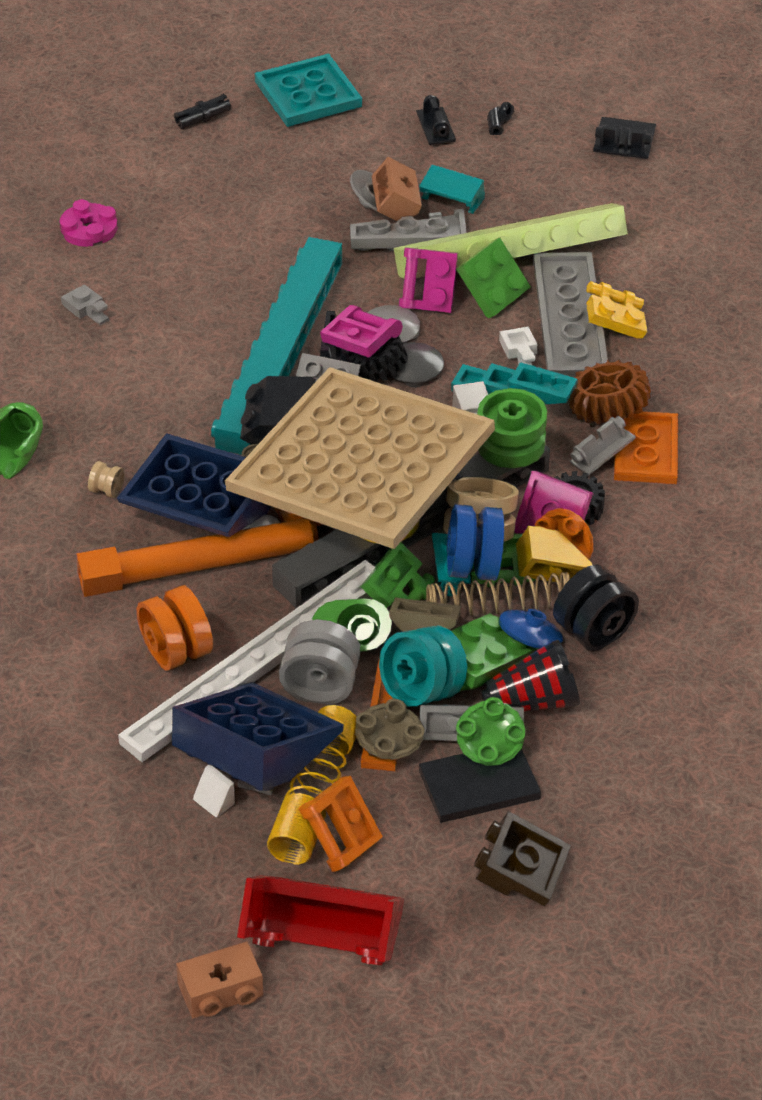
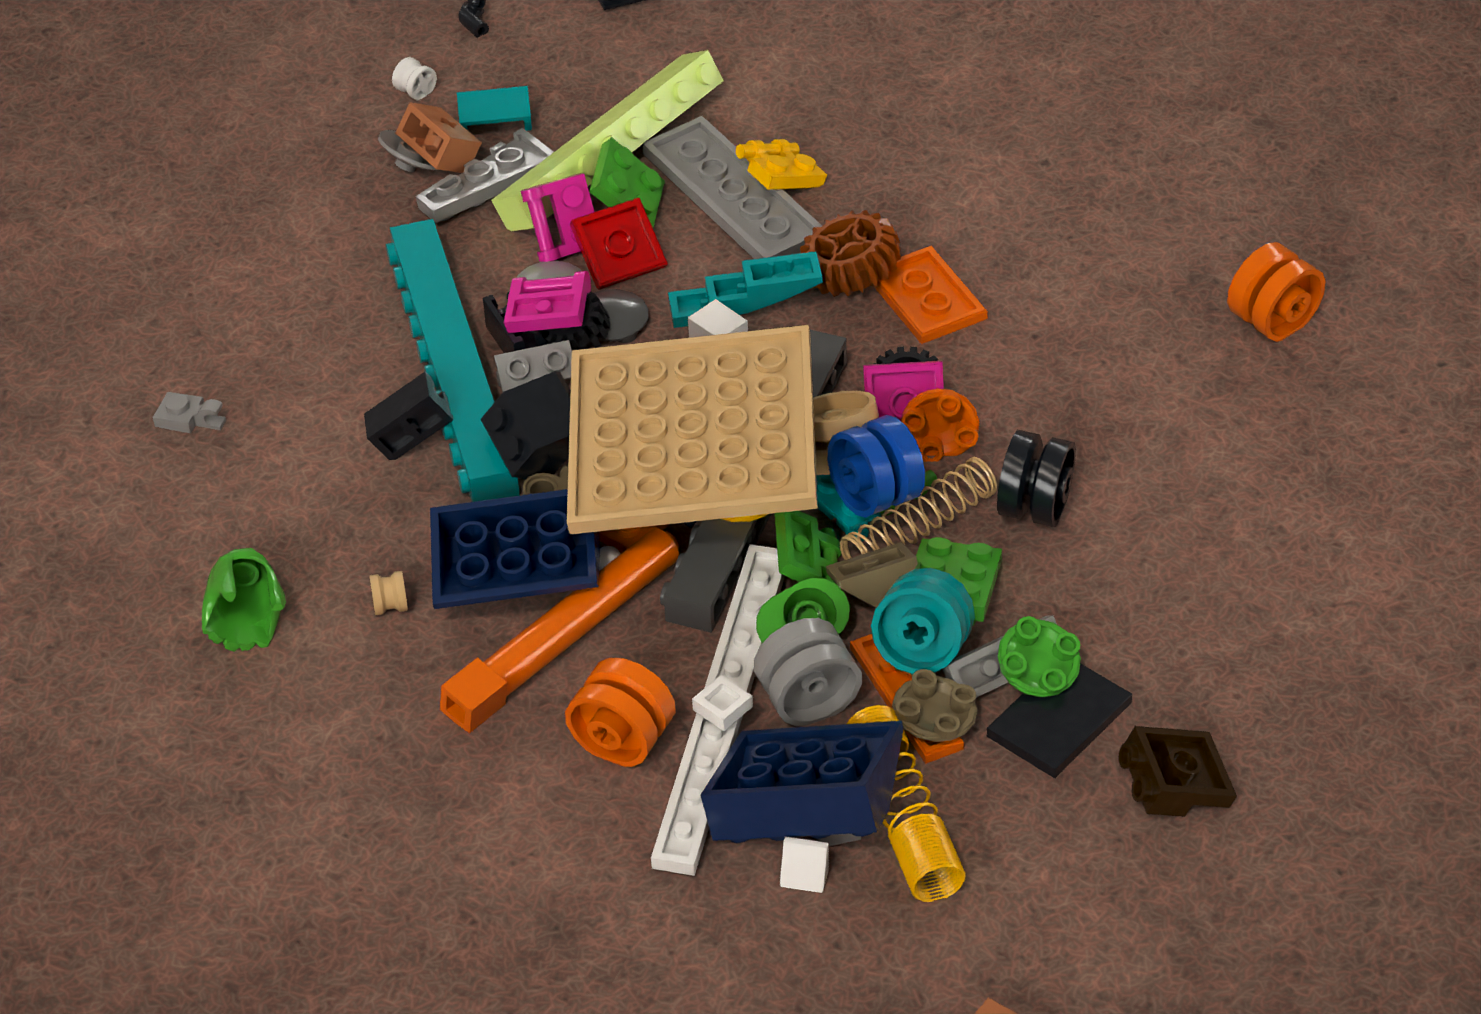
camera: 30 degrees left, 0 degrees up
(102, 226) = (128, 324): dark pink plate -> none
(202, 111) = (133, 142): black pin -> none
(211, 369) = (407, 417): none -> black hinge
(247, 655) = (722, 702): none -> white plate
(308, 90) = (234, 69): teal plate -> none
(320, 916) = (1044, 928): red windscreen -> none
(350, 819) = (981, 819): orange plate -> none
(425, 147) = (414, 78): none -> white wheel
(435, 122) = (402, 44): black hinge -> none
(455, 315) = (618, 243): none -> red tile
(519, 344) = (708, 245): white plate -> none
(519, 428) = (812, 306): bright green wheel -> none
(529, 627) = (980, 532): blue dish -> none
(536, 681) = (1041, 580): black cone -> none
(546, 553) = (948, 445): yellow slope -> none
(593, 453) = (890, 313): light grey hinge -> none

